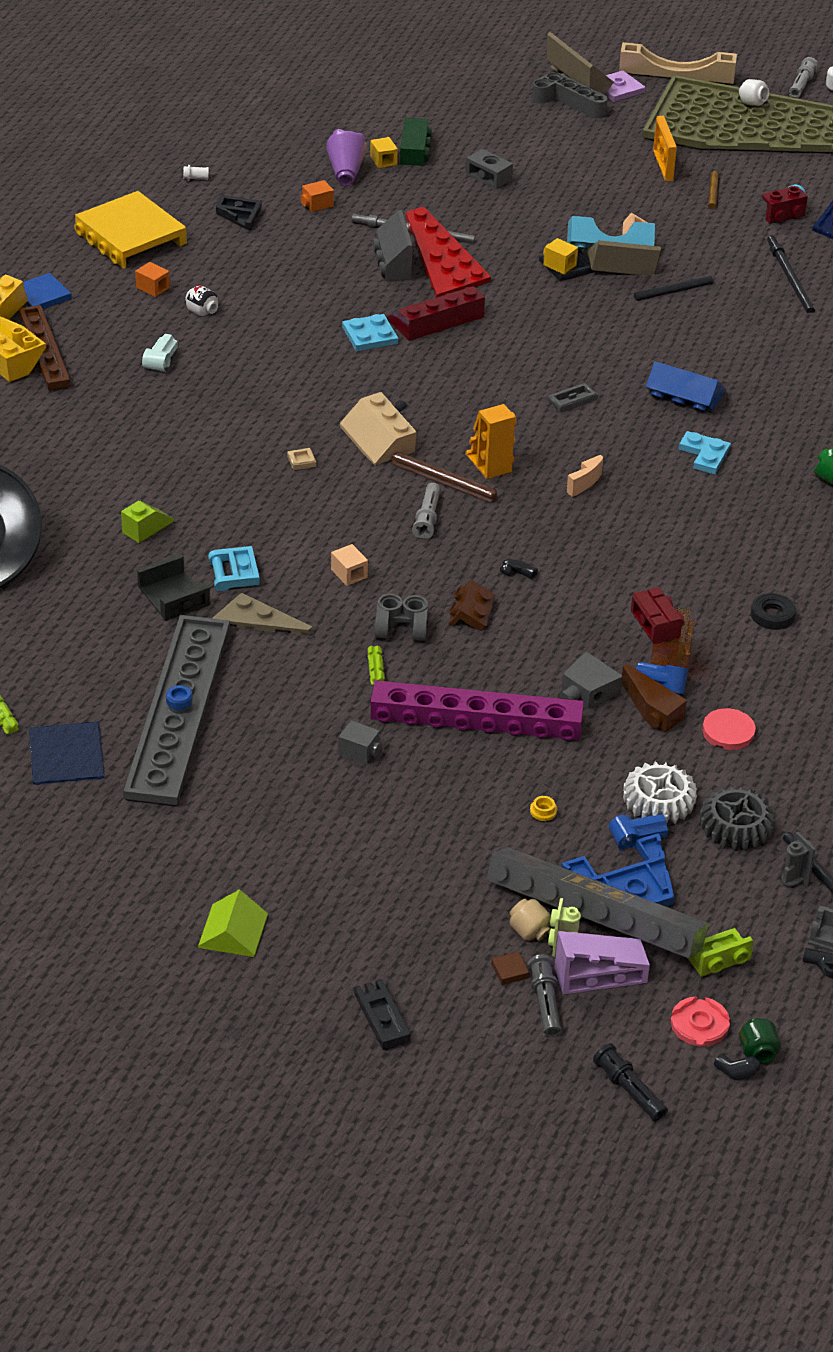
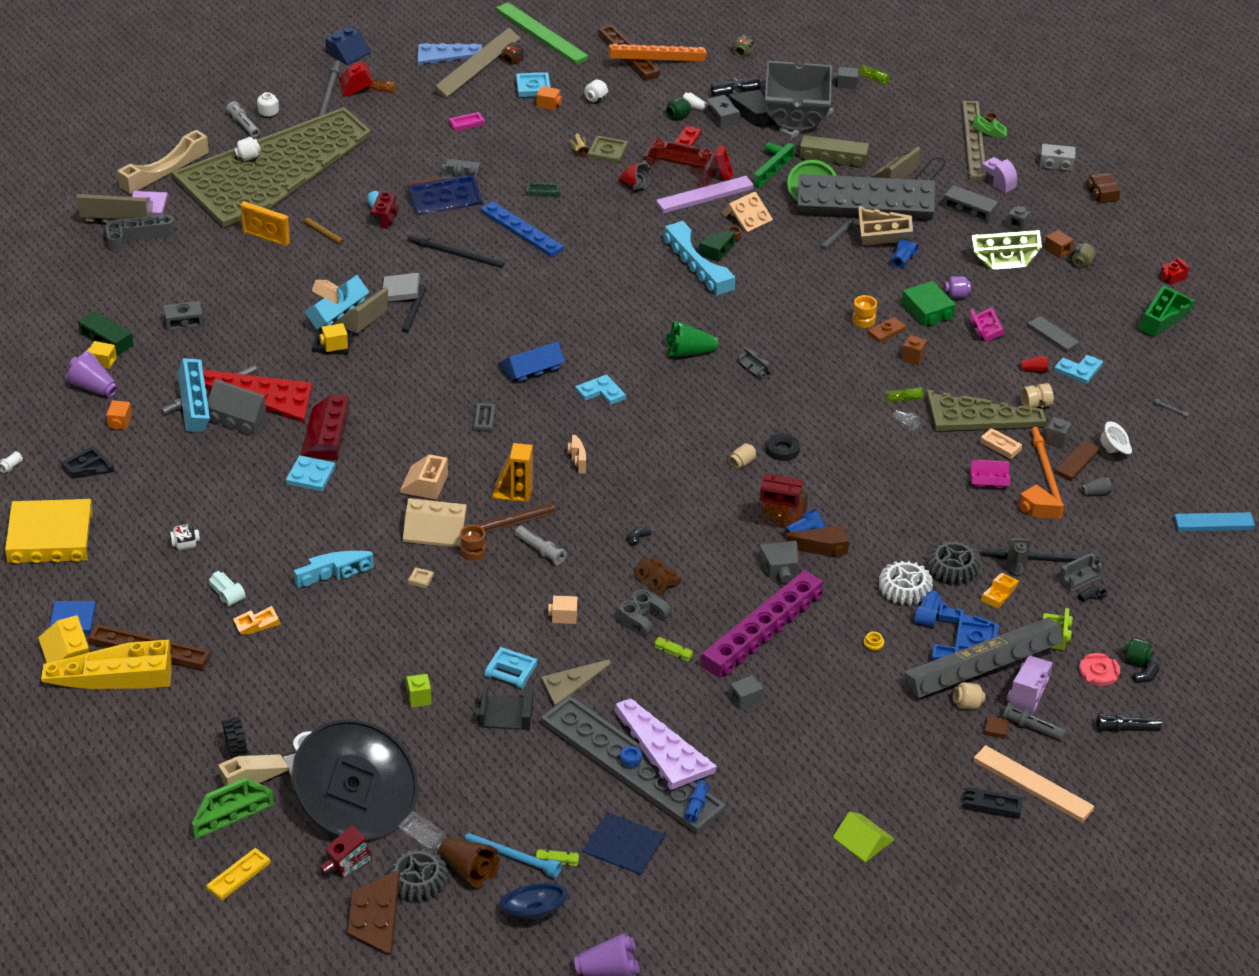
camera: 55 degrees left, 0 degrees up
(138, 390) = (250, 623): none -> light orange slope
(152, 279) = (128, 549): orange brick -> none
(153, 769) = (696, 801): none -> blue pin
(216, 721) = (665, 749): none -> lavender wing
(256, 397) = (340, 564): none -> medium azure slope
(362, 229) = (193, 395): none -> medium azure brick
(375, 463) = (472, 542): none -> dark orange wheel
(437, 398) = (426, 477): none -> light nougat slope
(449, 1040) = (1034, 784): none -> light nougat tile
(563, 920) = (994, 682): yellowish green hinge -> none
(690, 265) = (402, 286): none -> light grey tile
(720, 587) = (742, 456): none -> tan brick
(728, 729) = (870, 524): coral tile -> none
(745, 878) = (1000, 590): none -> light orange slope

